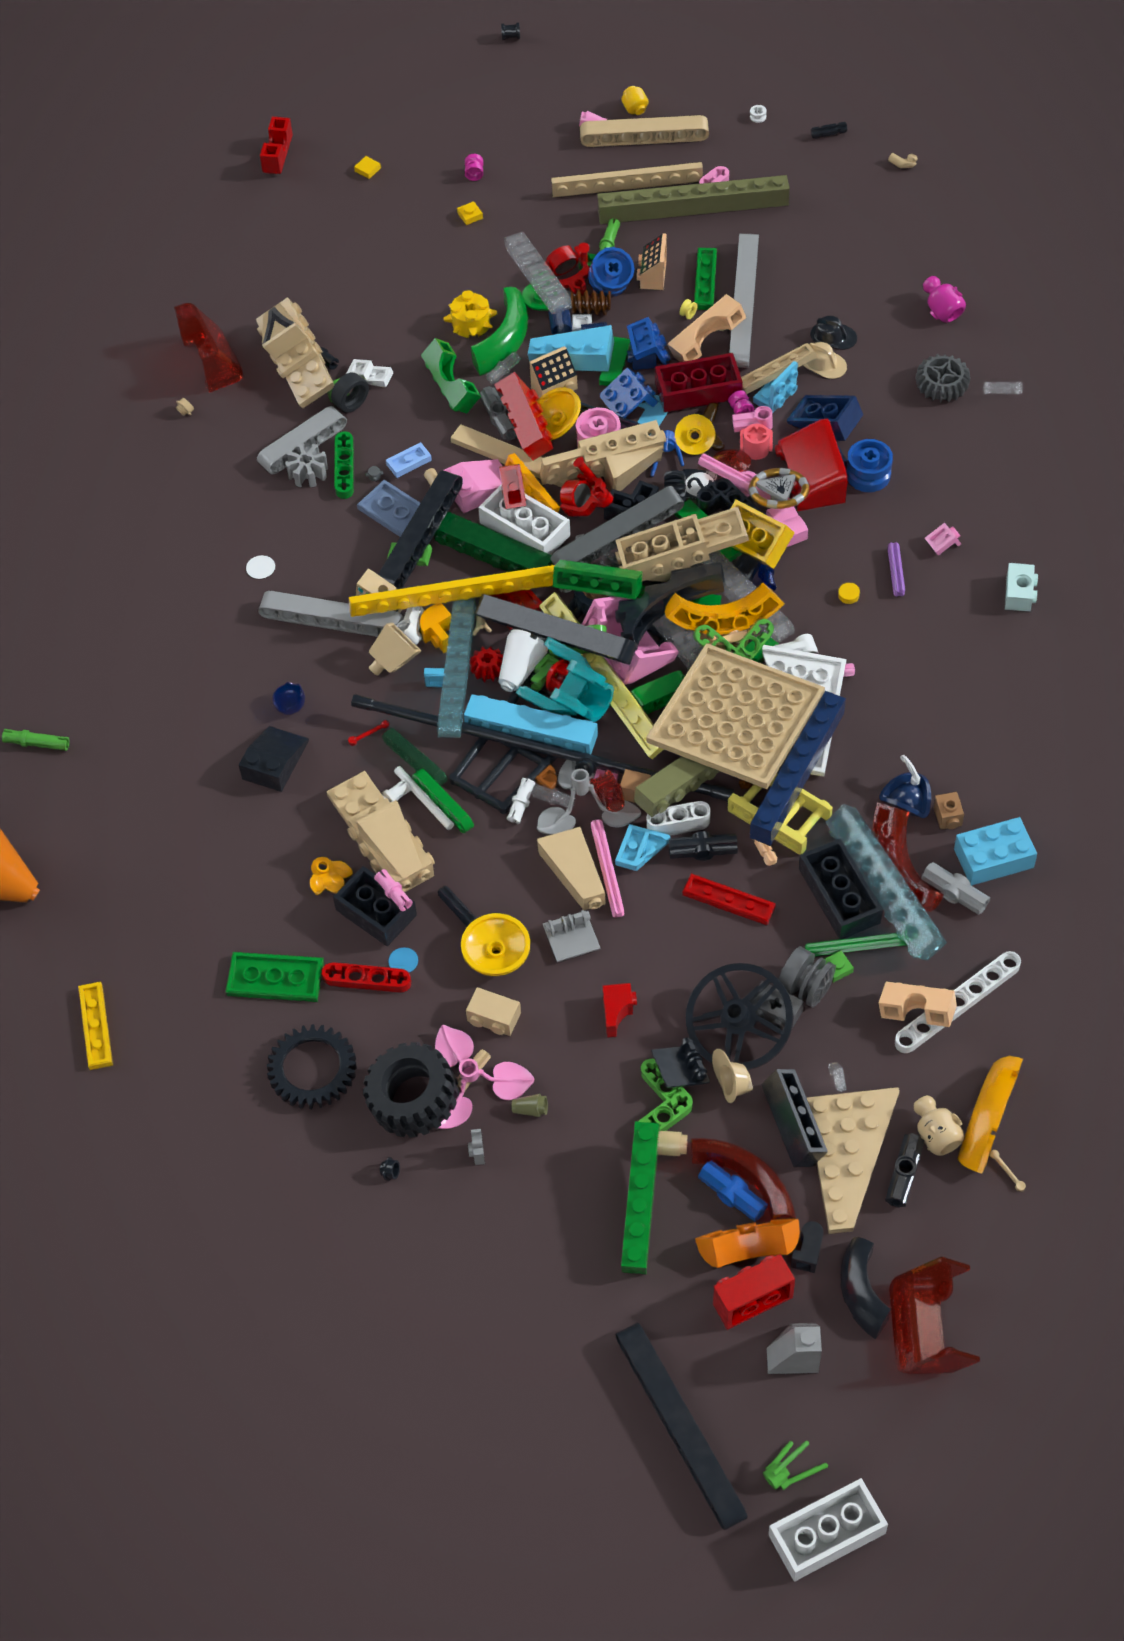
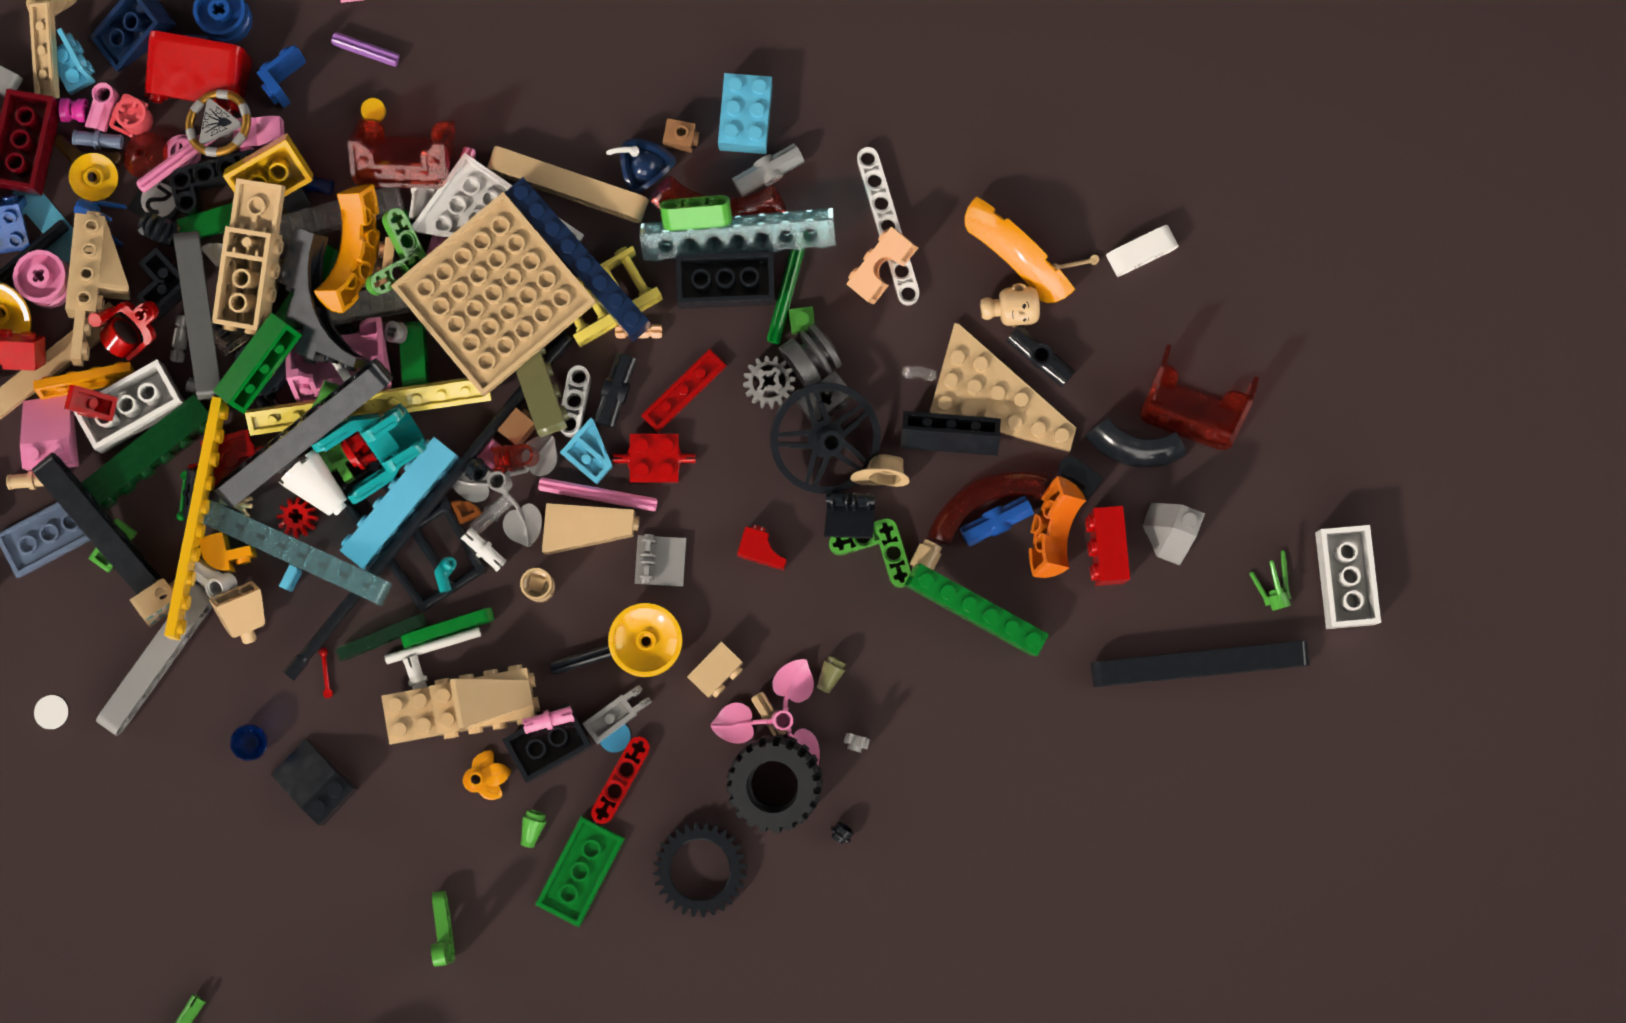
camera: 70 degrees left, 25 degrees up
(182, 893) = (443, 951): none -> bright green beam
(298, 924) = (532, 826): none -> bright green cone
(421, 950) = (614, 715): none -> light grey hinge
(487, 778) = (443, 572): none -> teal arm
(507, 849) = (537, 585): none -> tan wheel
(659, 898) = (654, 458): none -> red plate
(671, 667) = (395, 332): none -> light grey bush
(726, 428) = (97, 139): none -> sand blue pin
(766, 949) = (760, 375): none -> light grey gear
(809, 608) = (400, 160): none -> clear red windscreen
(843, 514) = (277, 70): none -> blue bracket
(861, 746) = (568, 184): none -> tan beam
(885, 837) = (696, 212): none -> beam
(1050, 1221) = (1142, 250): none -> white beam

